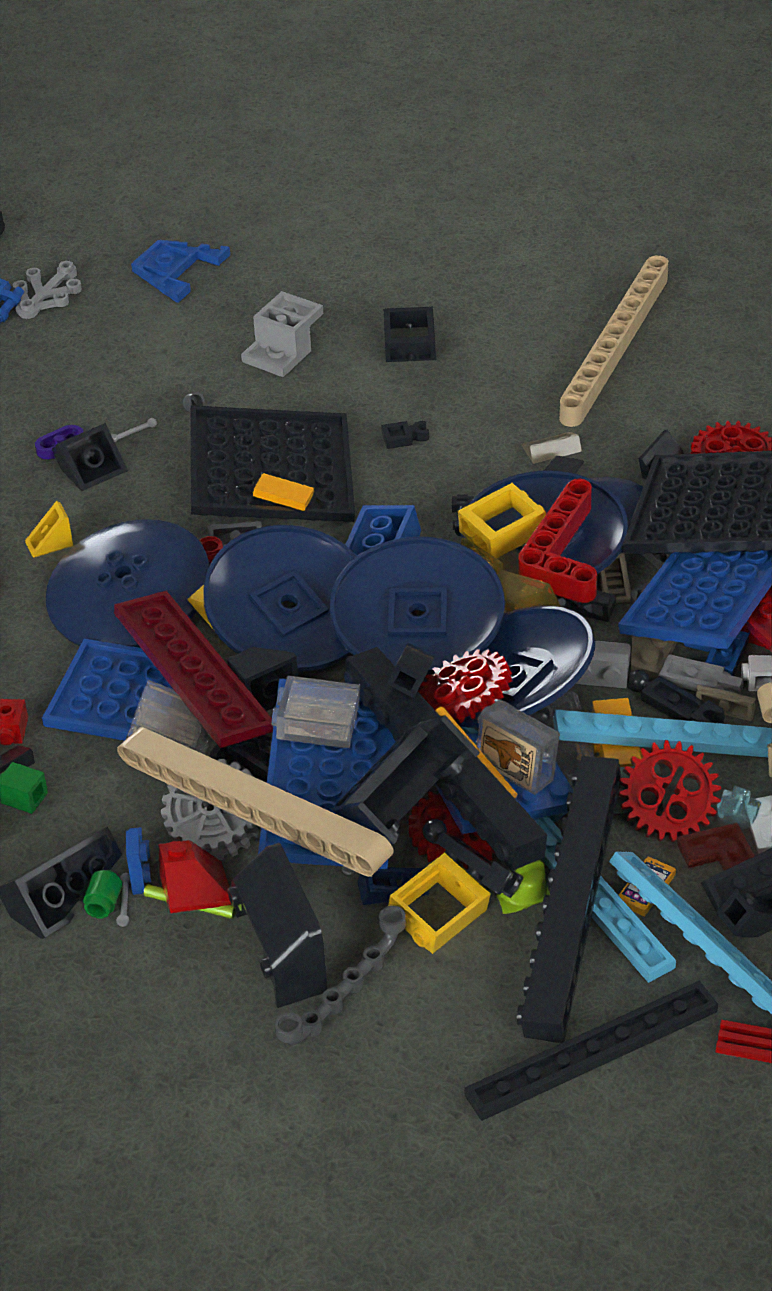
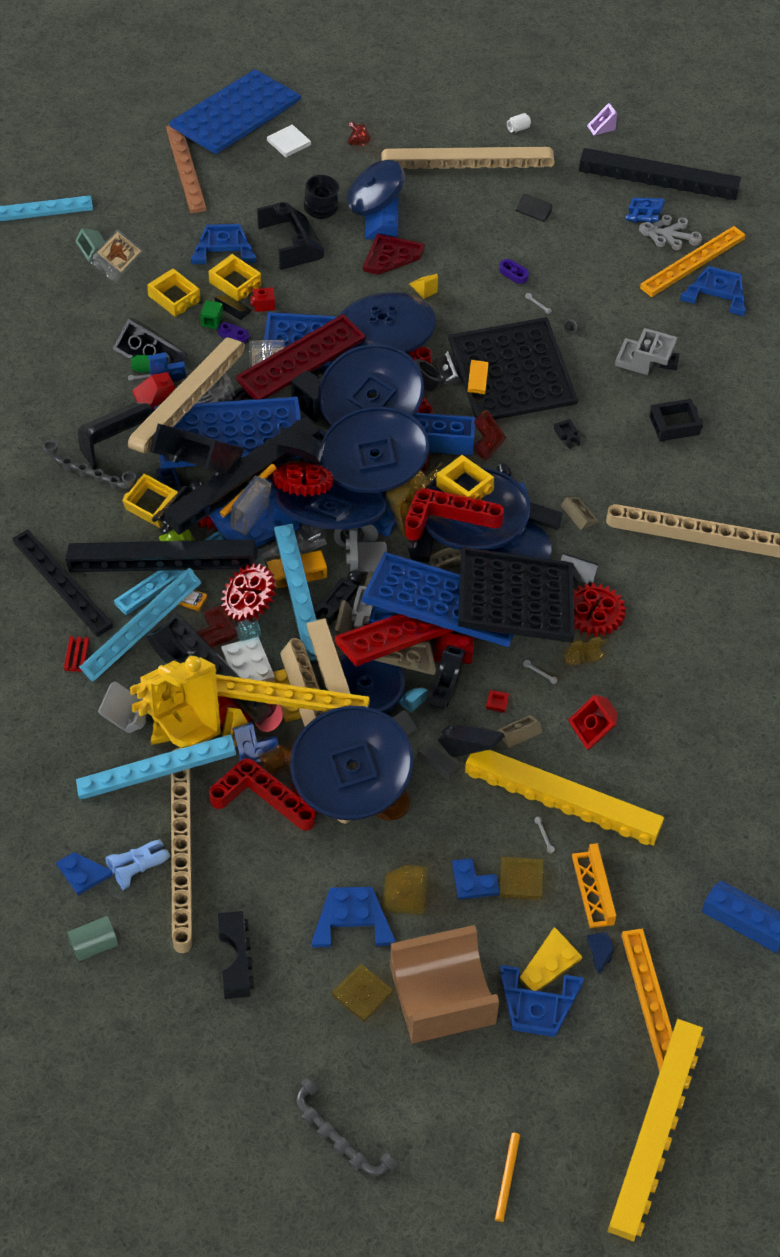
camera: 75 degrees right, 10 degrees up
(68, 771) = (232, 331): none -> dark purple plate
(90, 457) = (499, 287): black slope -> none
(113, 279) = (692, 261): none -> light orange plate
(316, 711) = (264, 413): clear brick -> none
(381, 497) = (492, 435): none -> clear red plate

